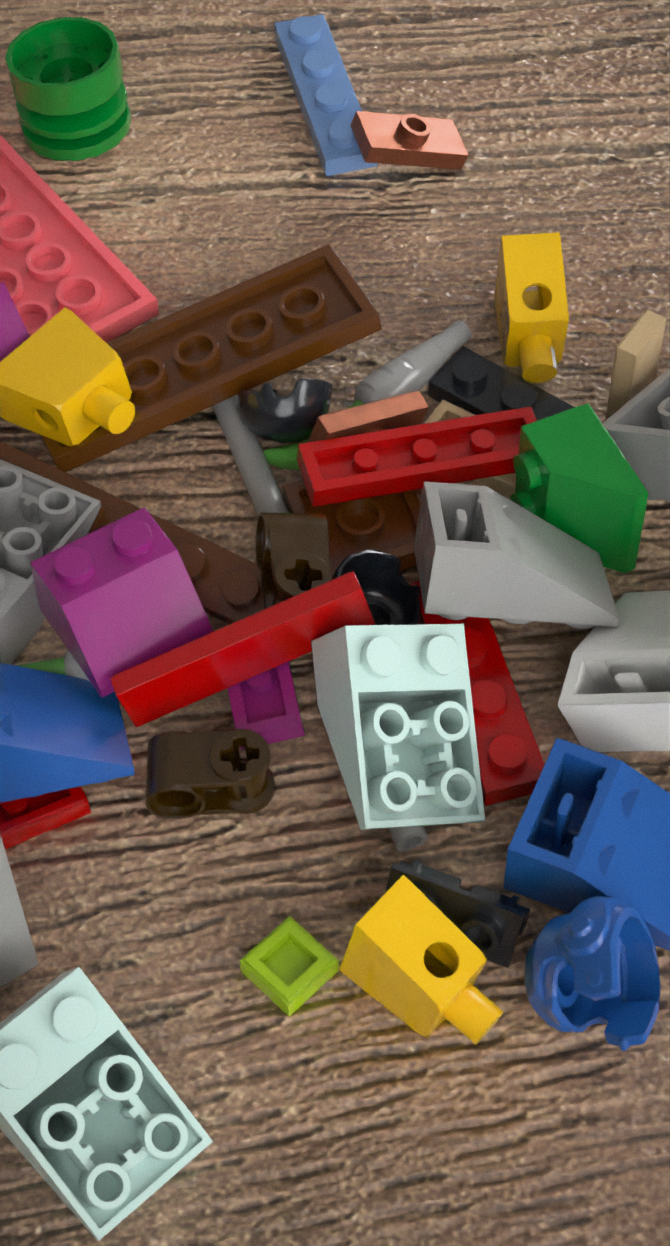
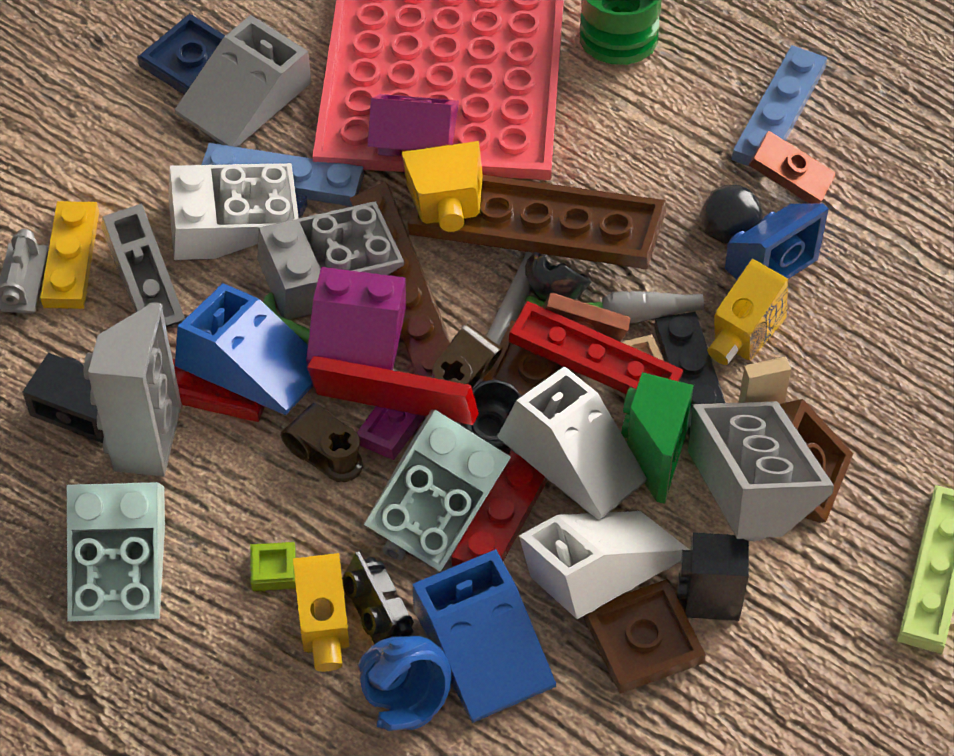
camera: 40 degrees right, 0 degrees up
(392, 225) = (730, 212): none -> black hair
(474, 218) = (781, 241): none -> blue slope

